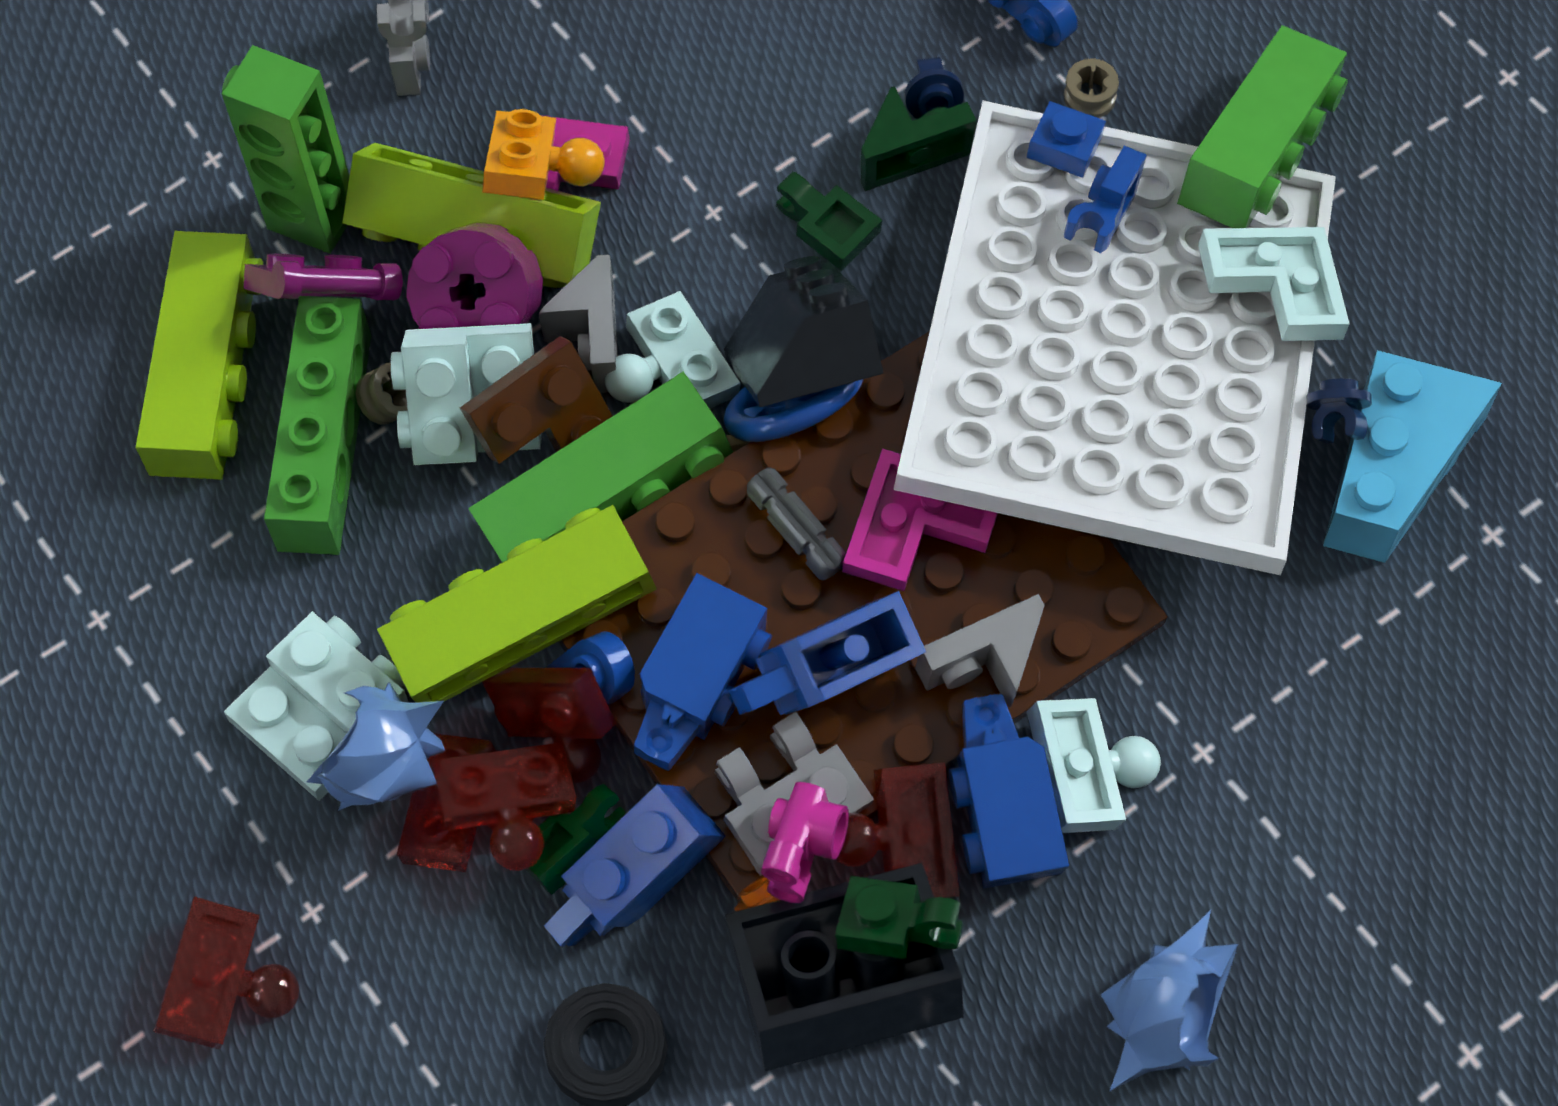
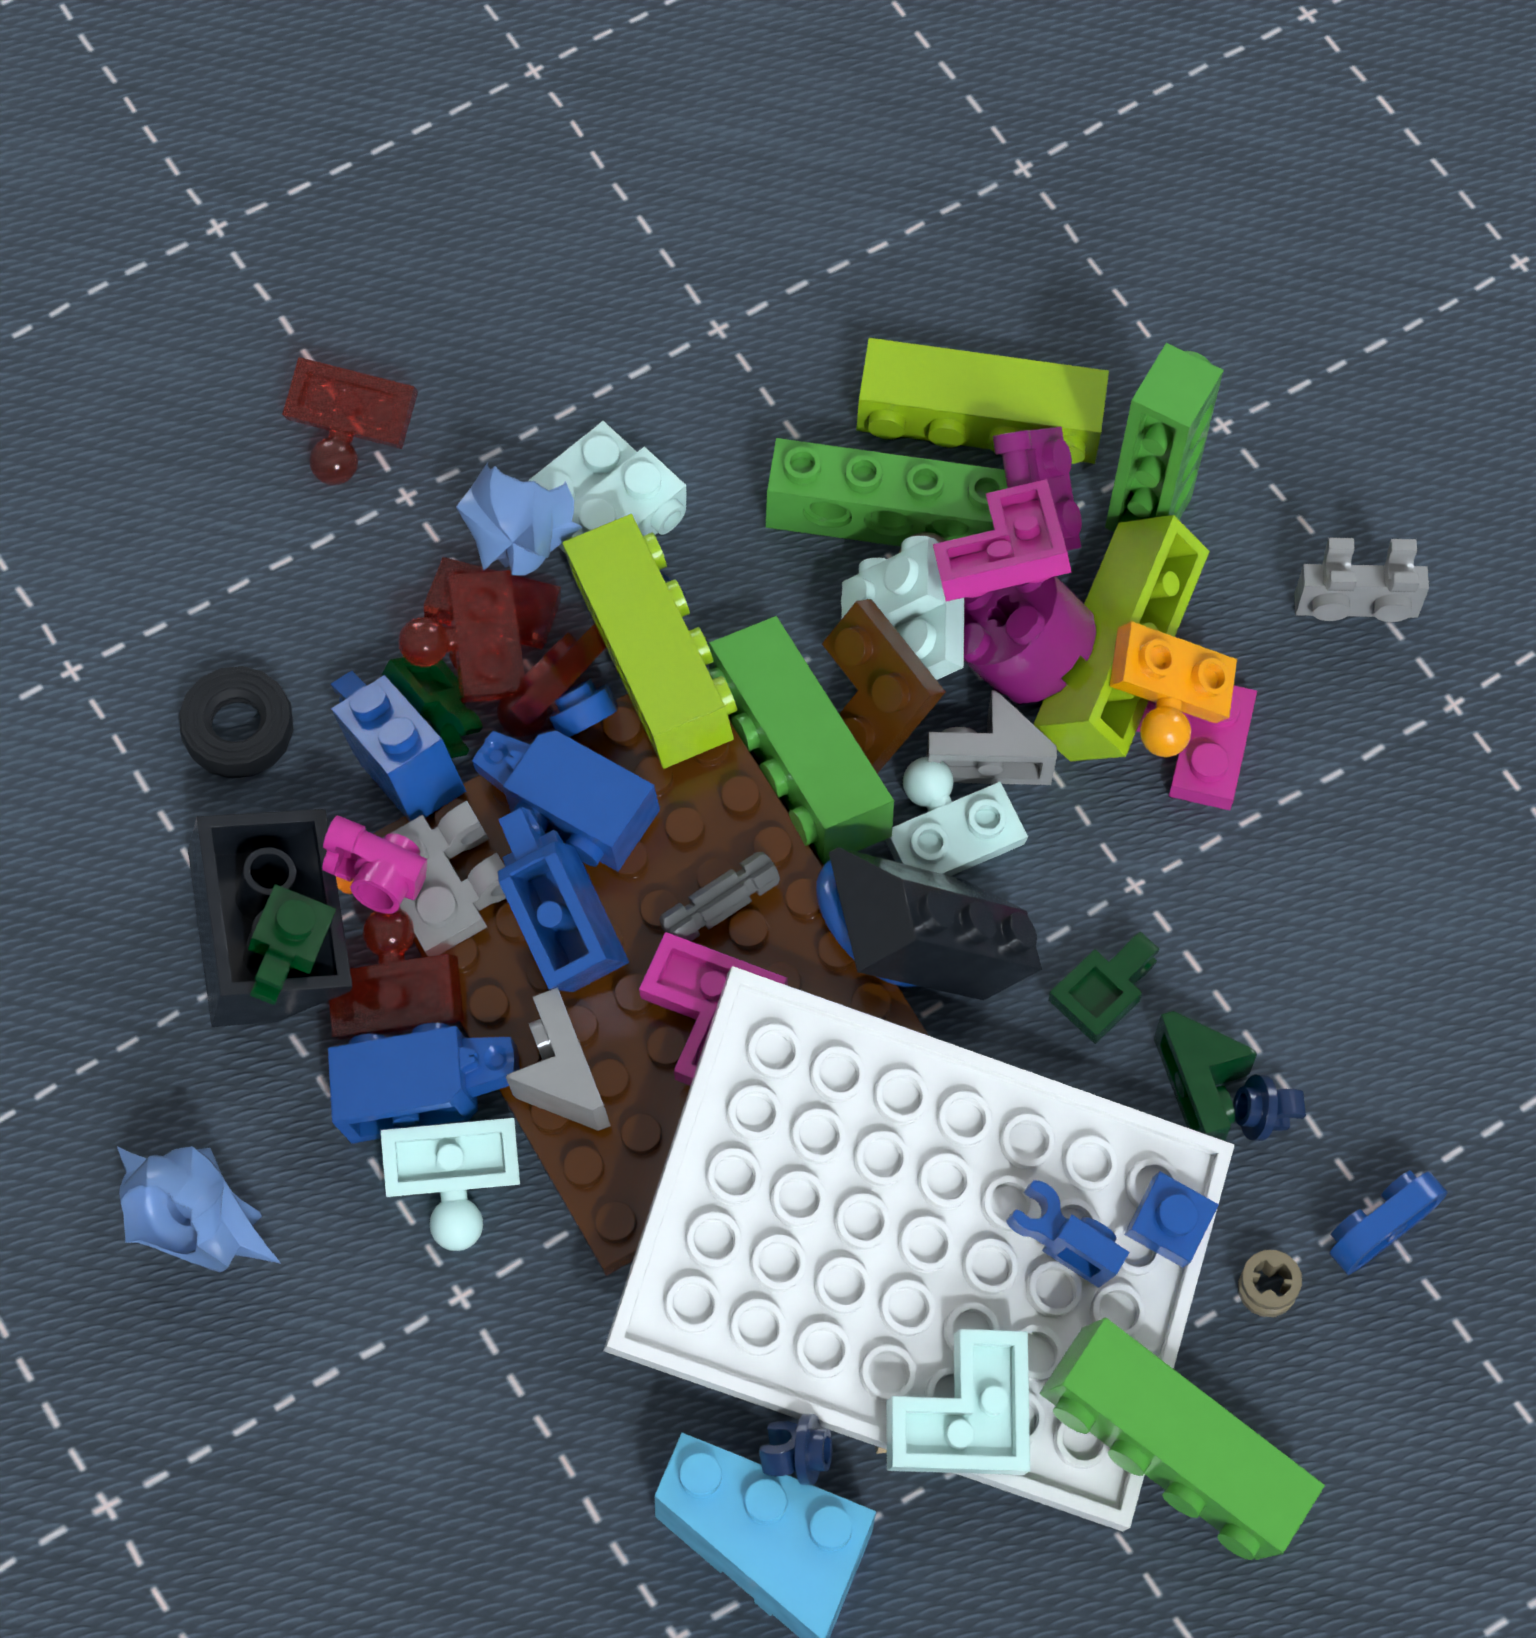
camera: 90 degrees right, 0 degrees up
(421, 256) = (1019, 550): none -> dark pink plate

